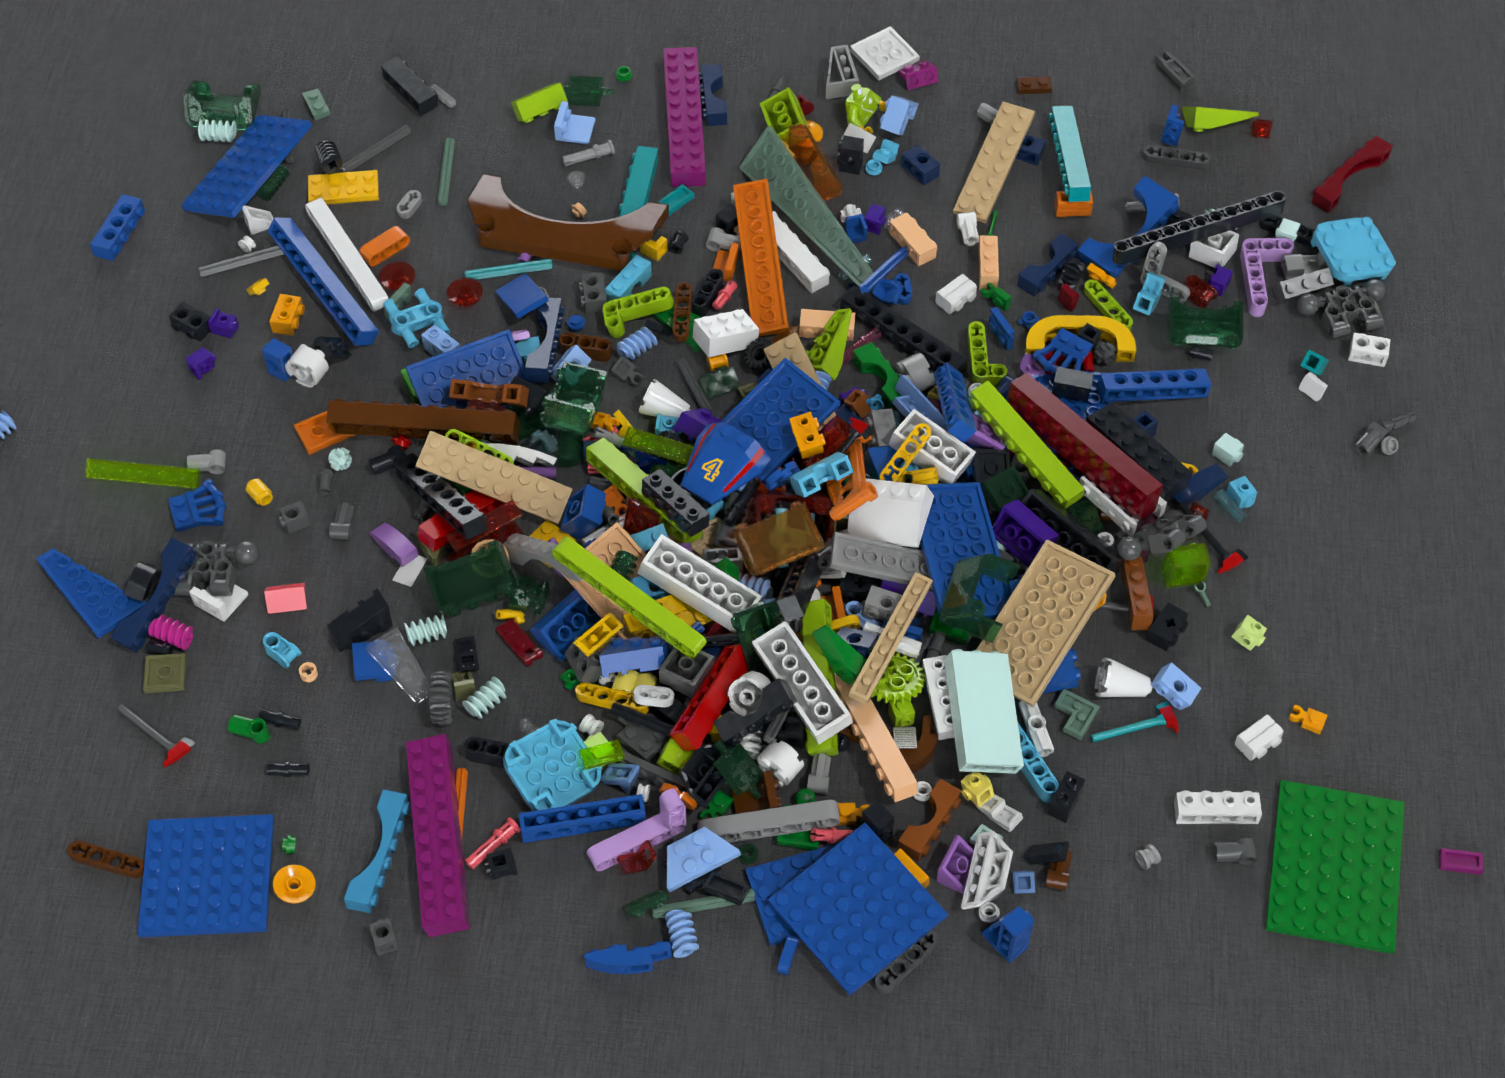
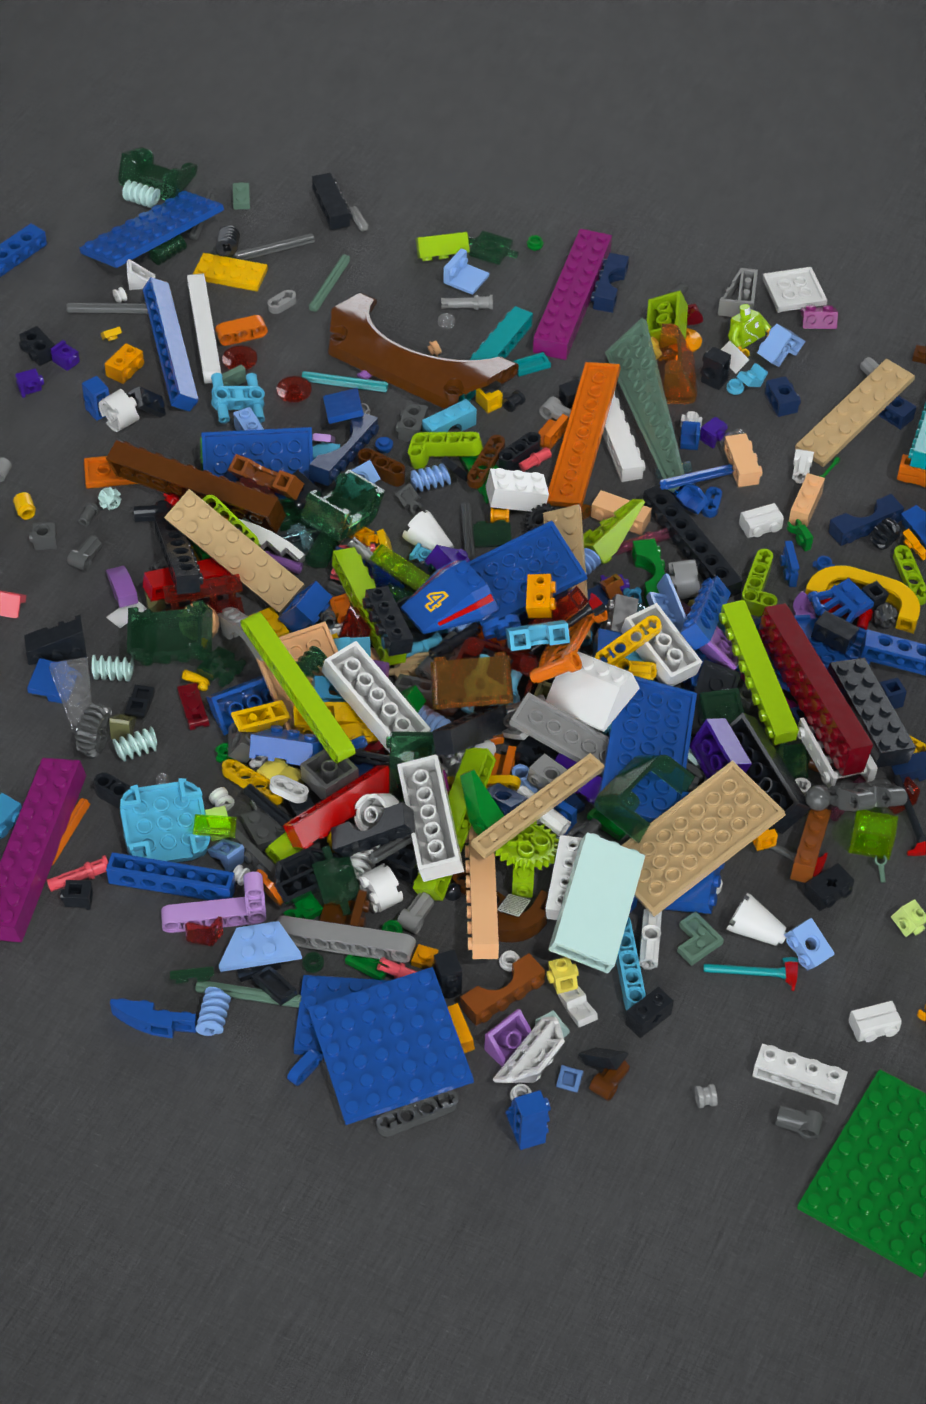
camera: 20 degrees right, 5 degrees down
(1068, 297) = (872, 555): dark red tile -> none

